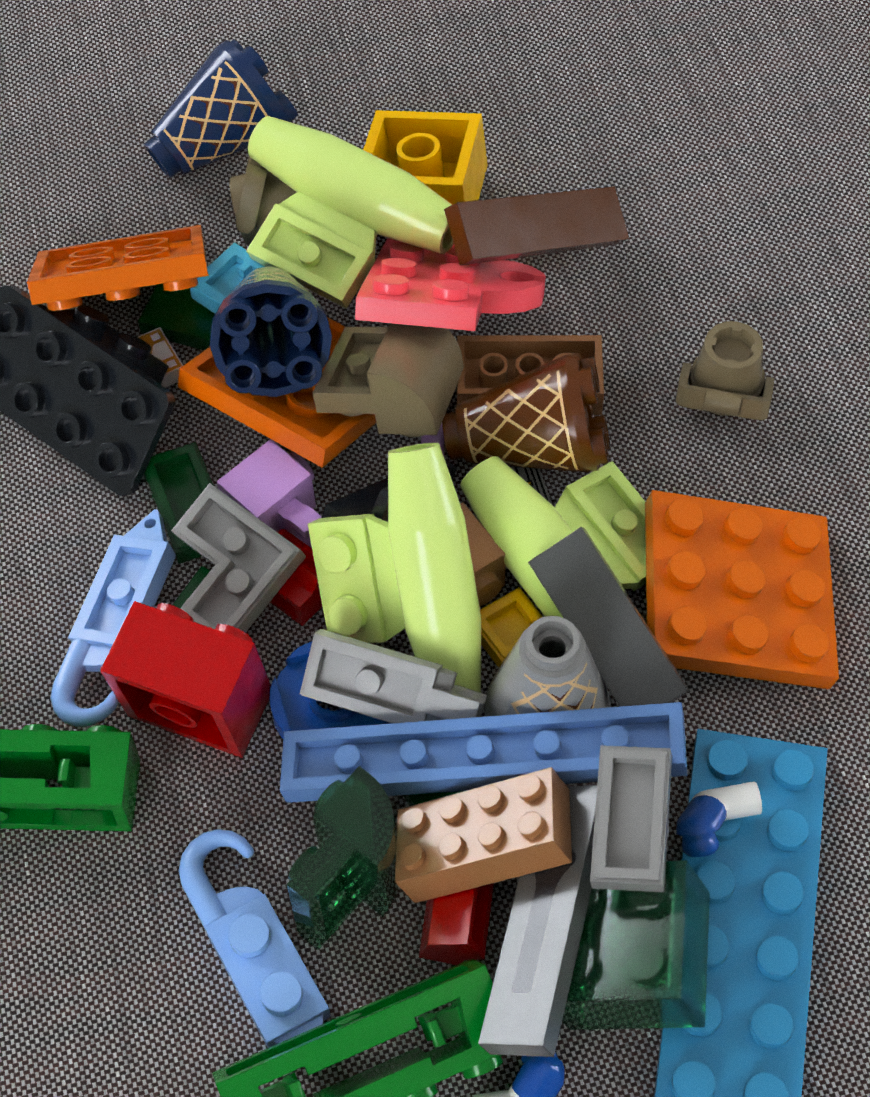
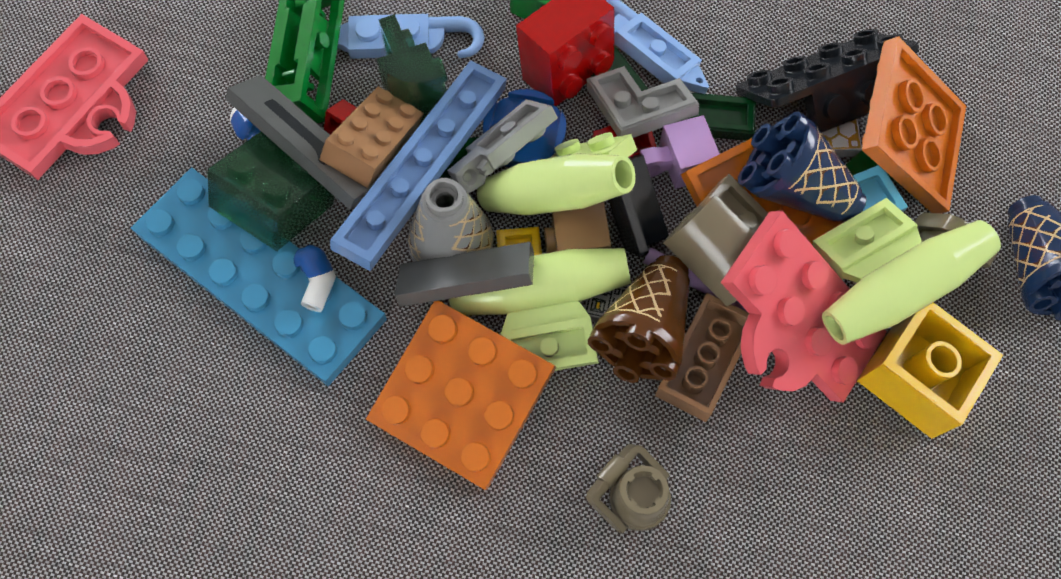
camera: 115 degrees right, 10 degrees up
(535, 224) = (825, 409): reddish brown tile -> none
(631, 819) = (316, 194): light grey tile -> none

